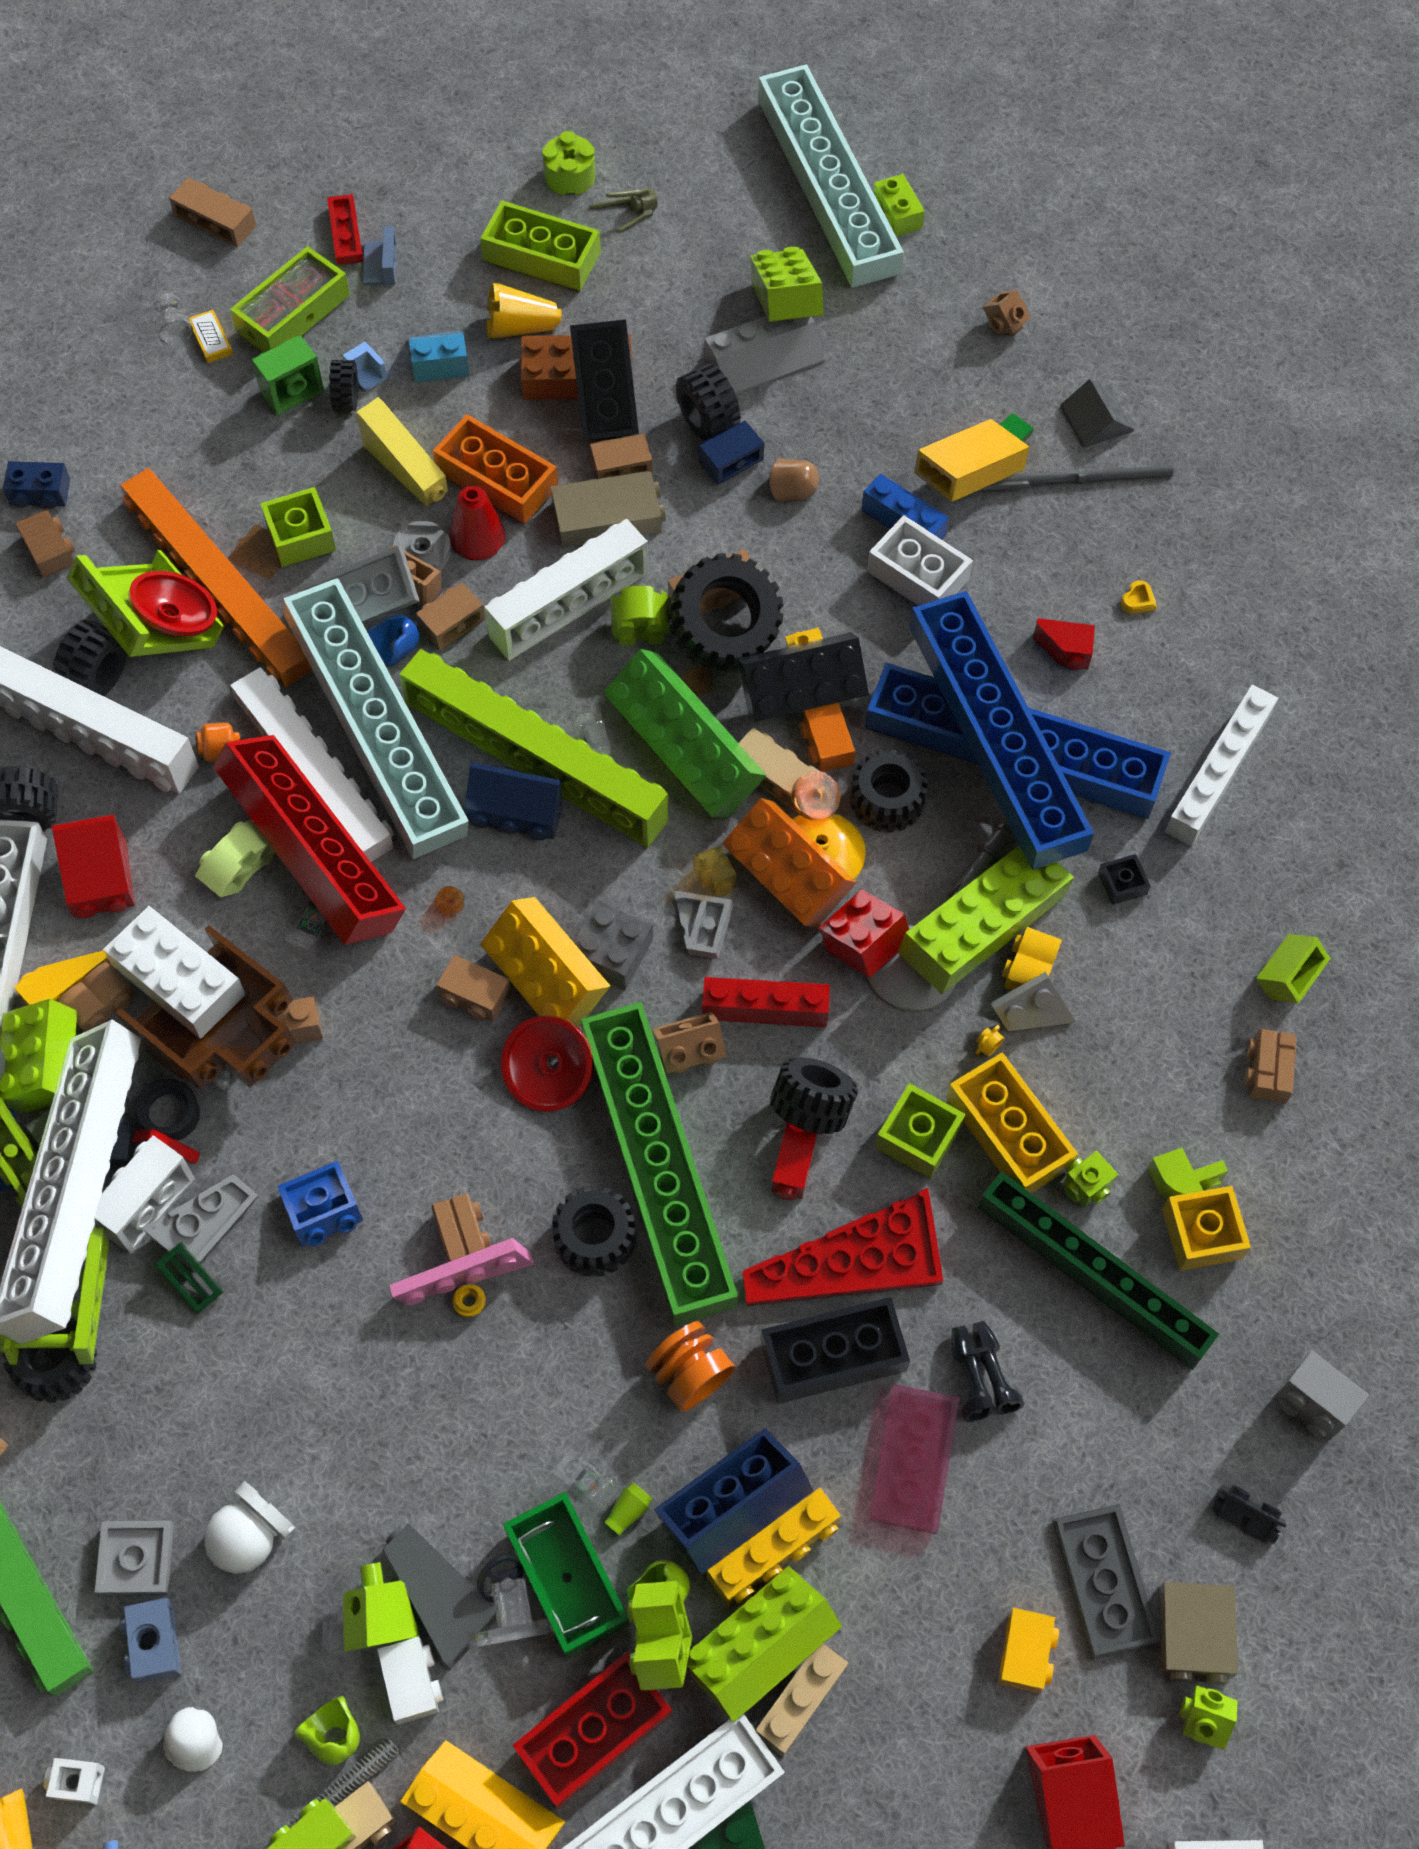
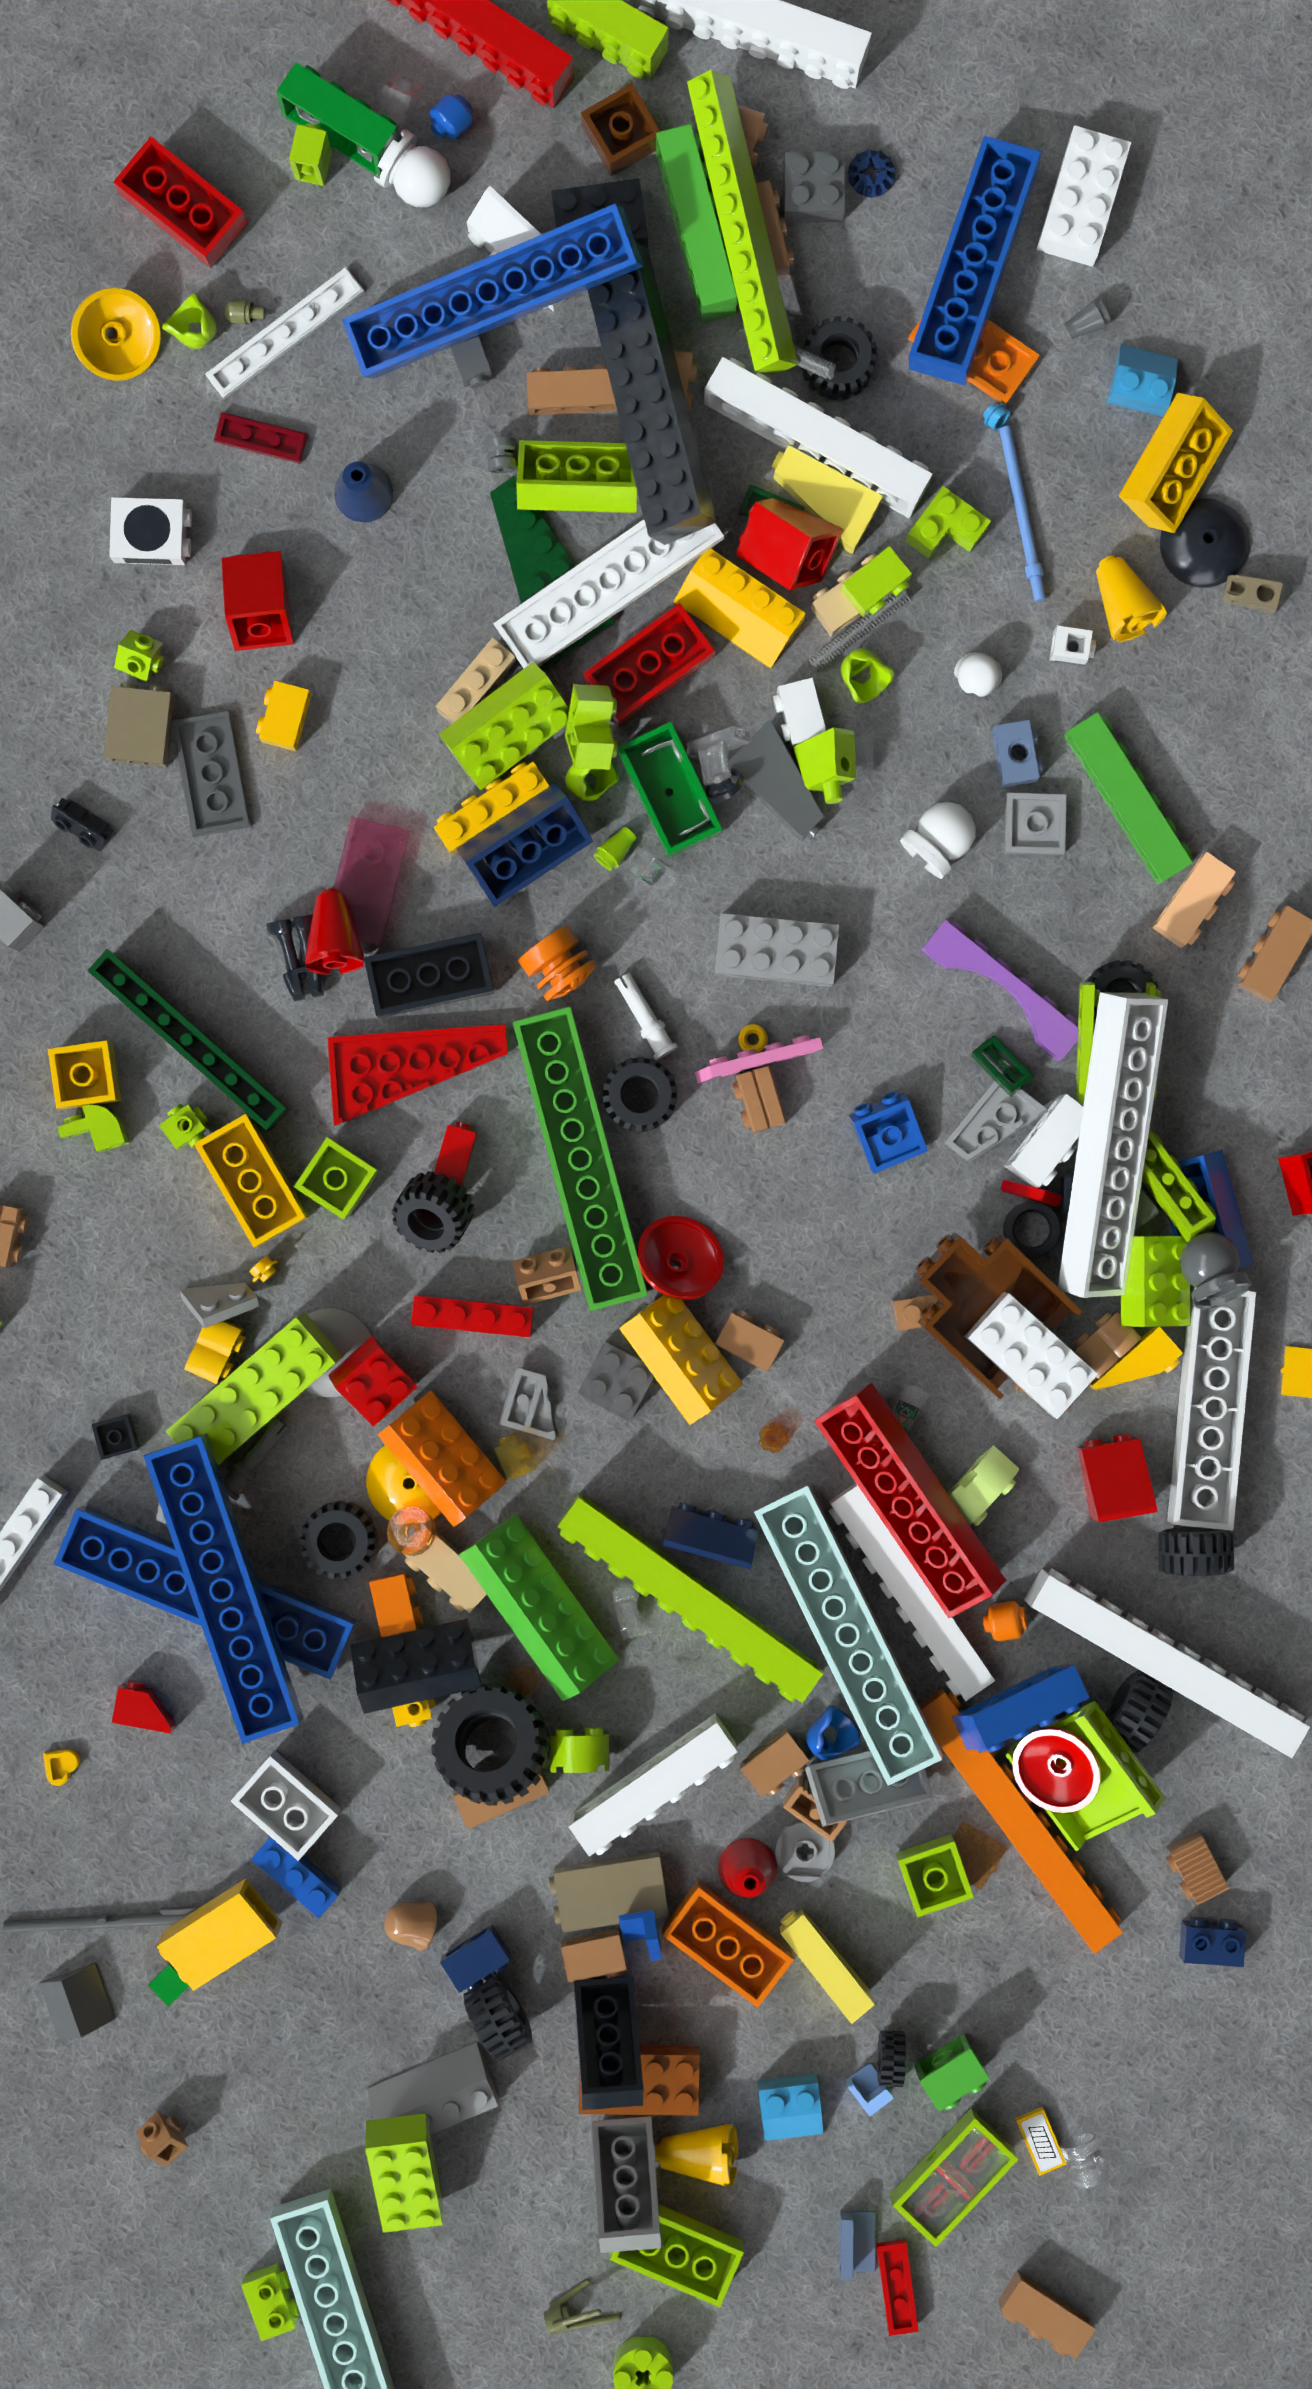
camera: 170 degrees left, 25 degrees up
(204, 656) = (1020, 1708): none -> blue brick
(235, 1402) = (1050, 1029): none -> medium lavender arch
(441, 1395) = (776, 950): none -> light grey brick
(567, 472) = (642, 1926): none -> blue panel
(582, 1305) = (652, 1029): none -> white pin
(585, 272) = (626, 2184): none -> light grey brick
(947, 1386) = (333, 936): none -> red cone

